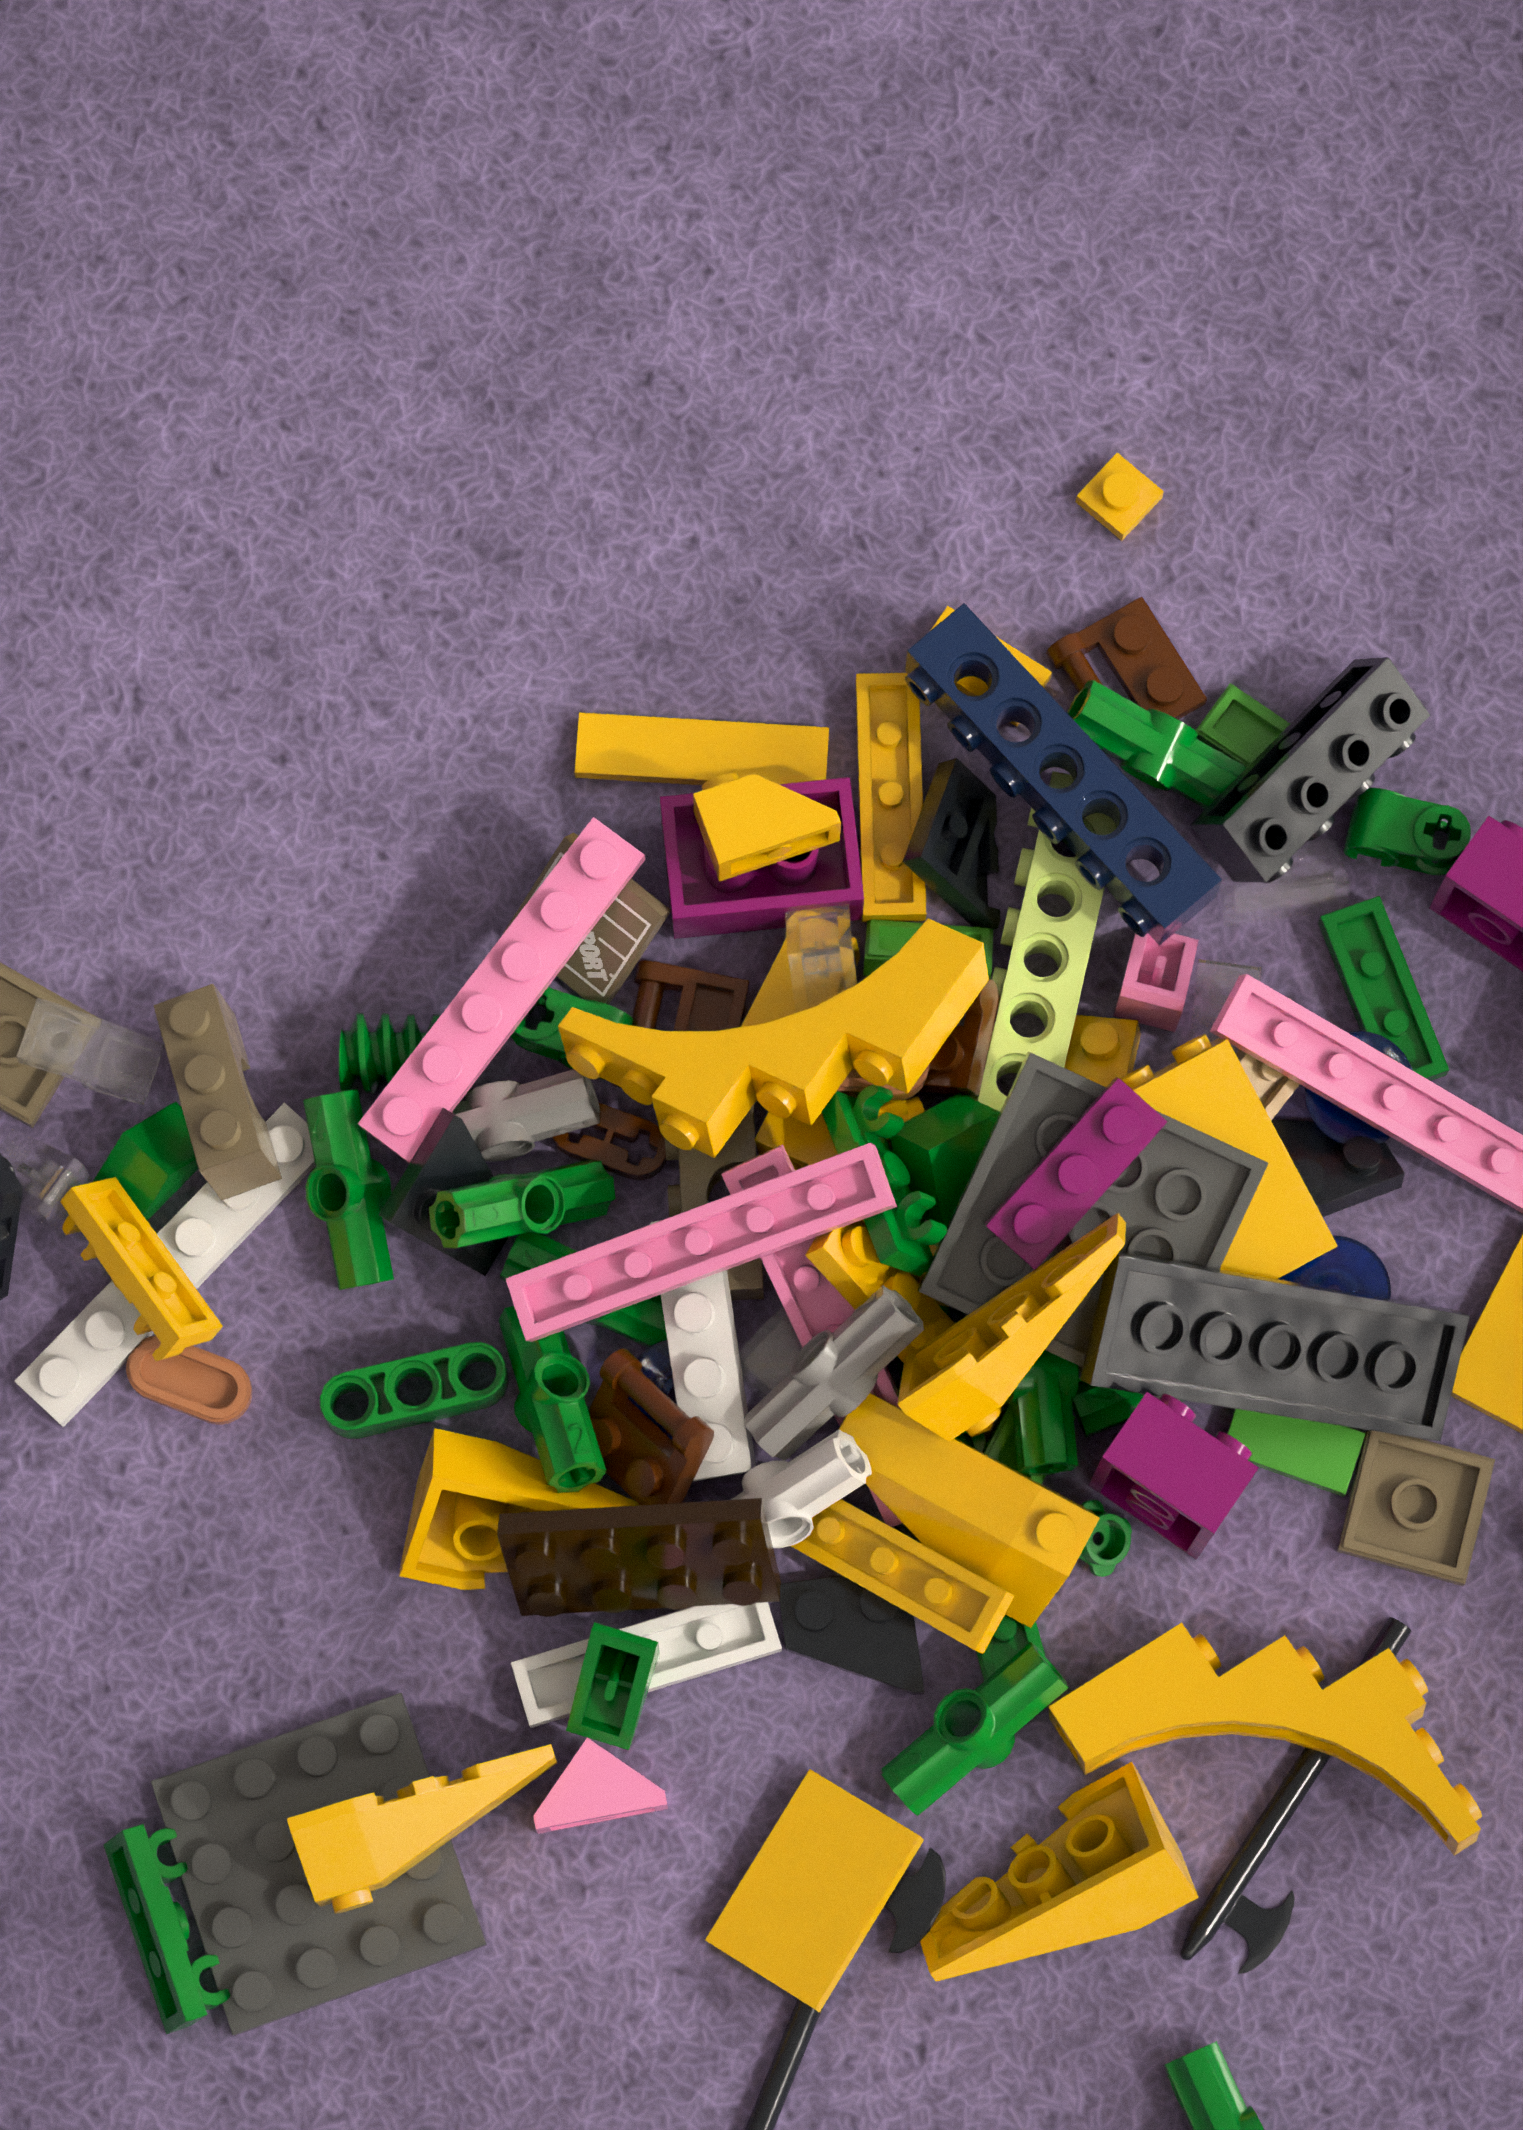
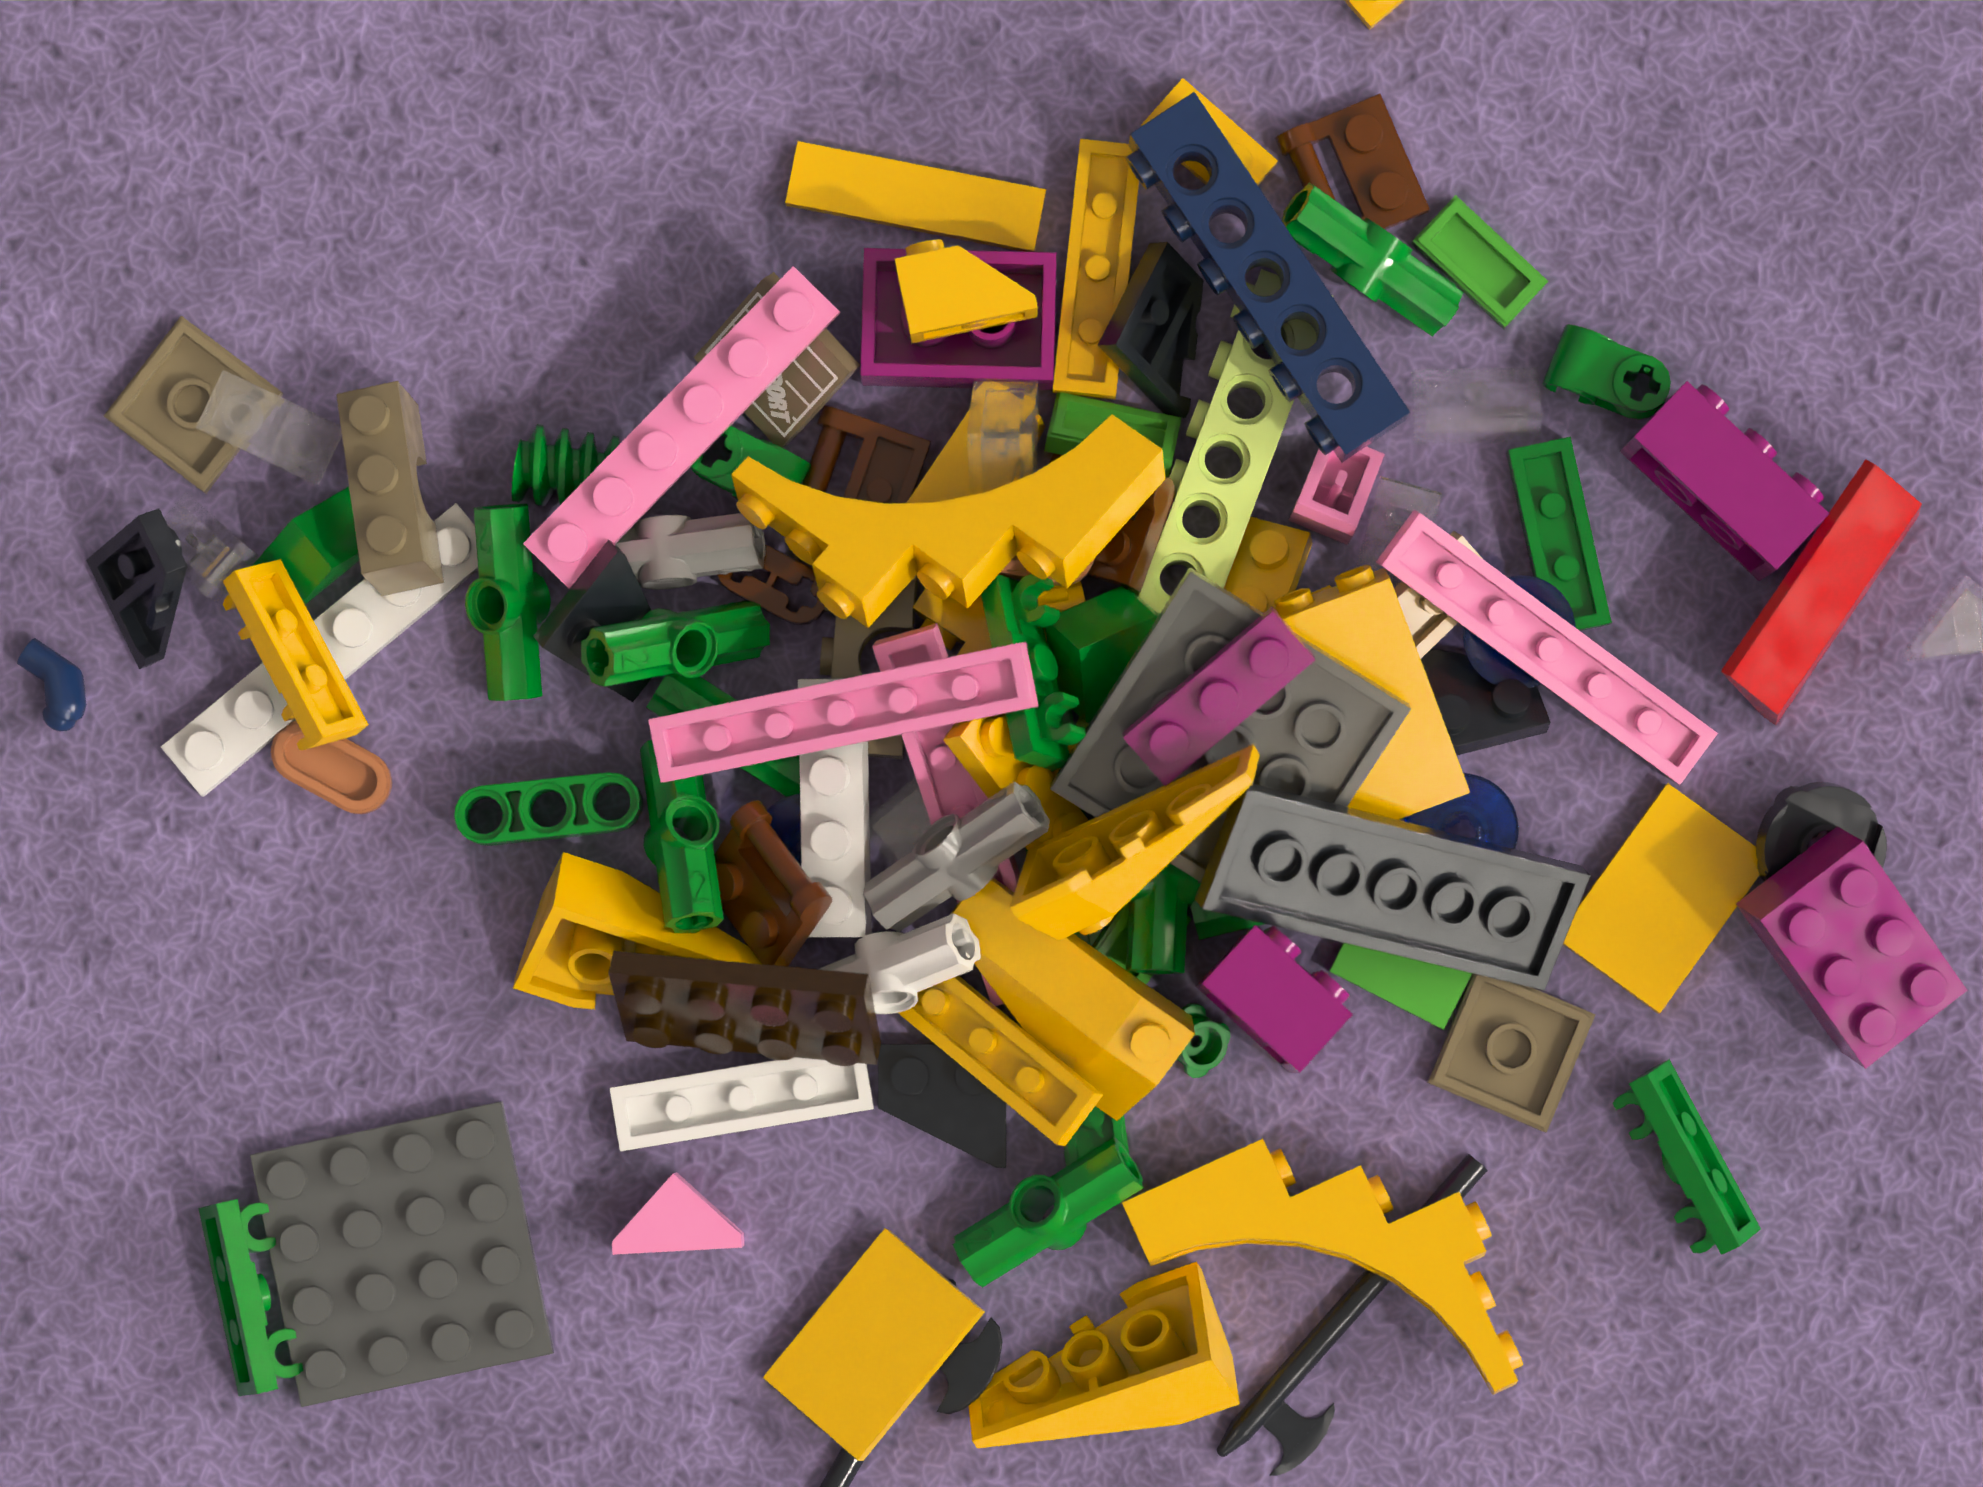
camera: 10 degrees right, 10 degrees up
(374, 1841) = (454, 1248): yellow wedge -> none
(612, 1685) = (703, 1129): green slope -> none
(1311, 771) = (1520, 302): black brick -> none

